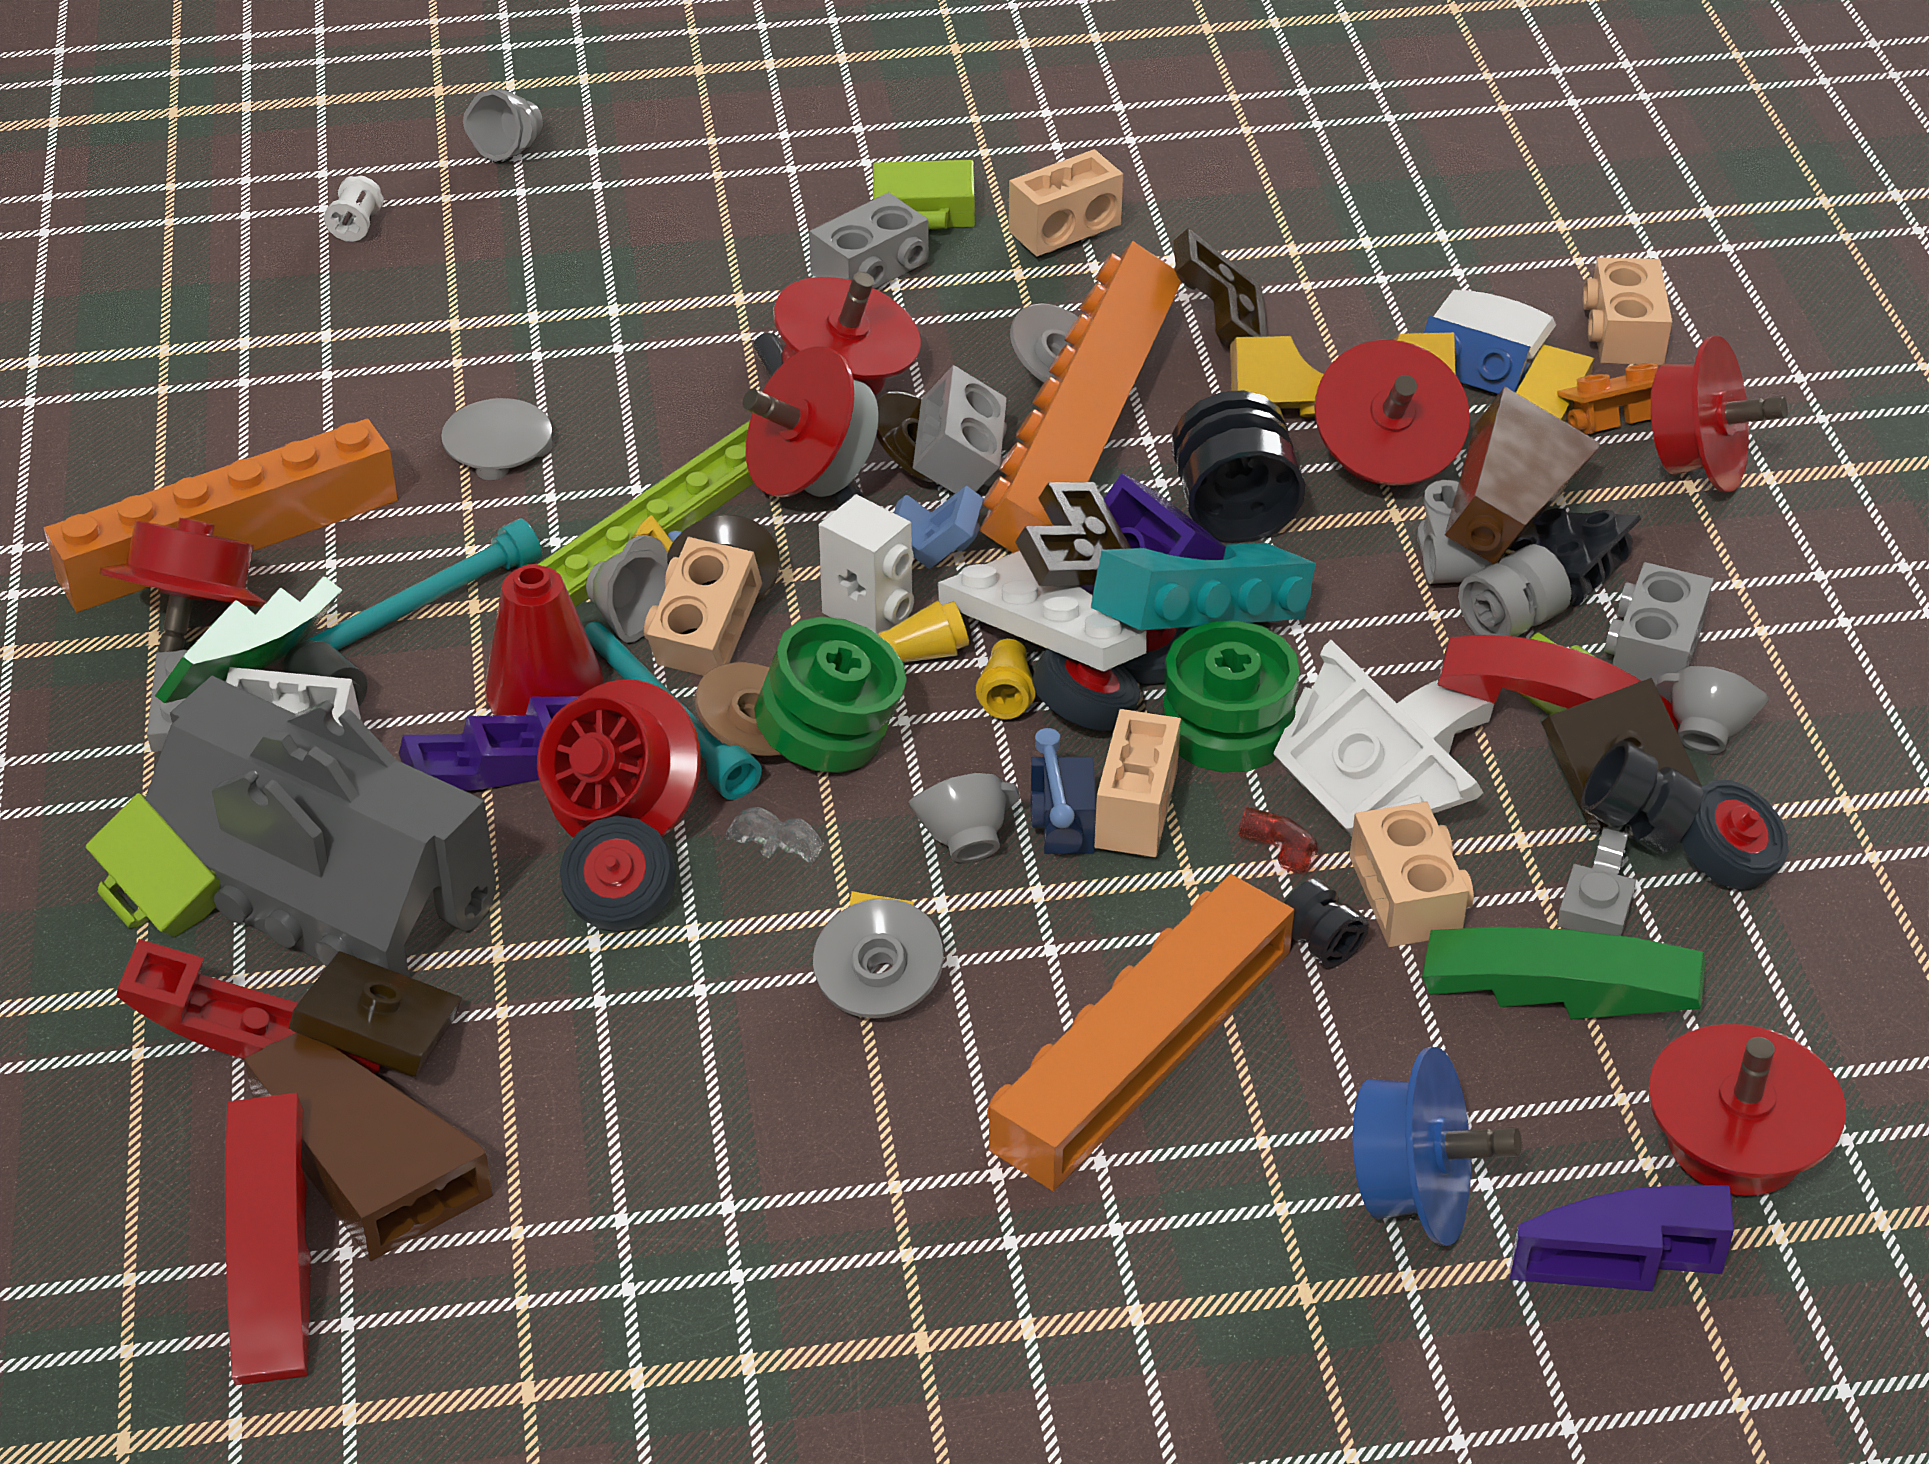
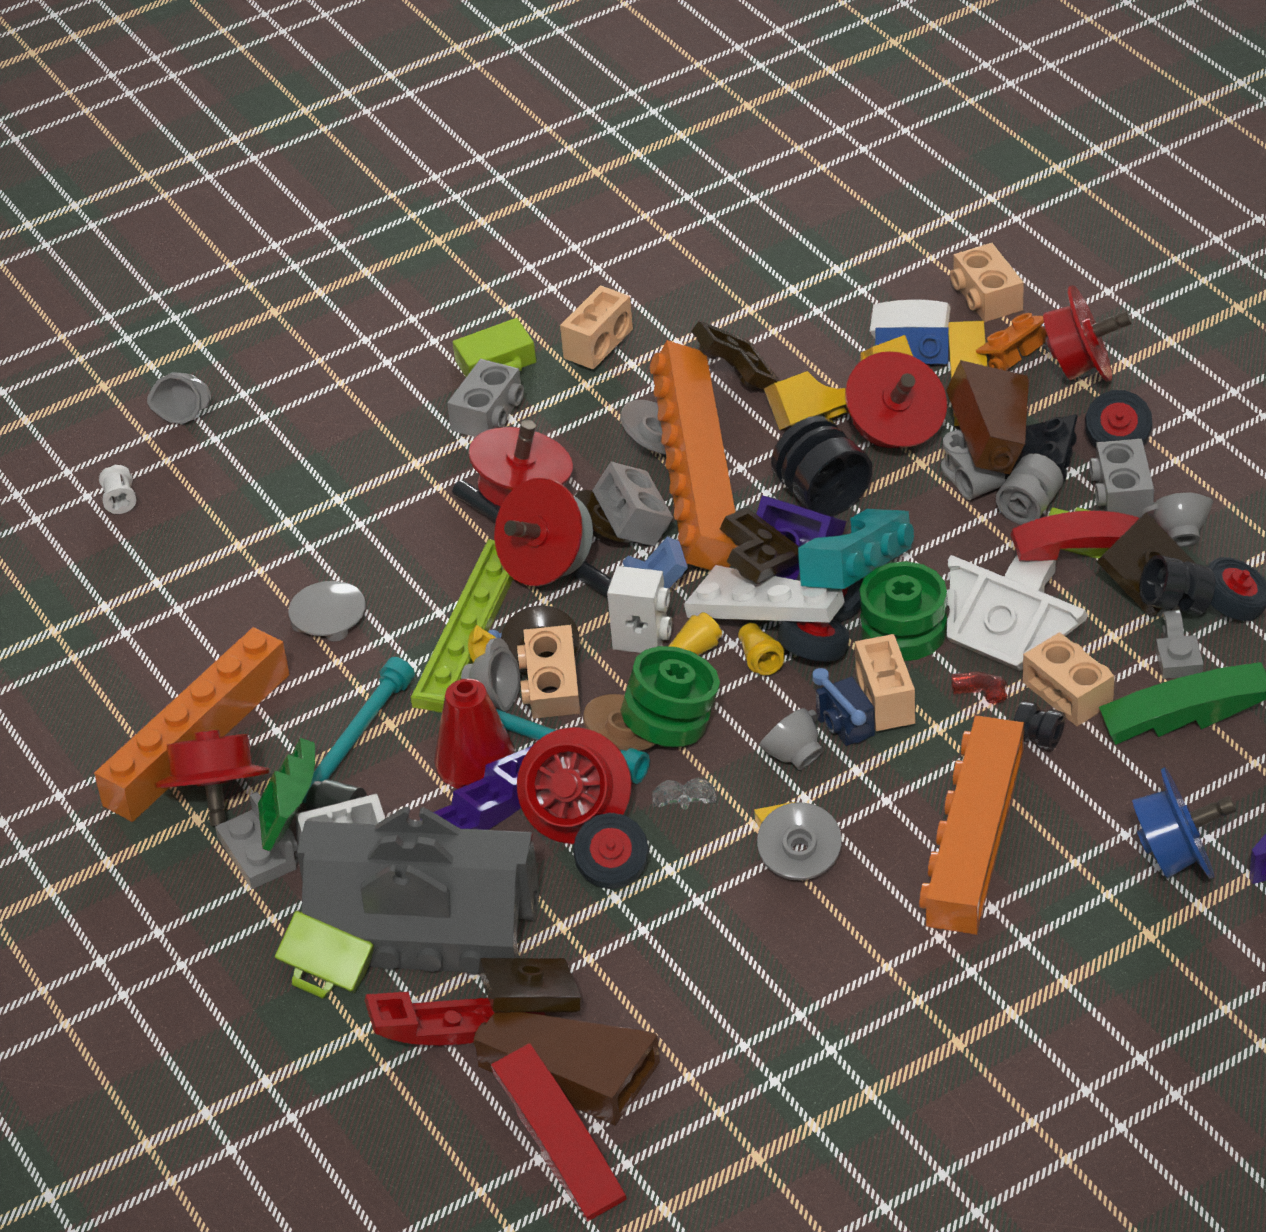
camera: 20 degrees left, 0 degrees up
(1704, 541) = (1118, 417): none -> black wheel

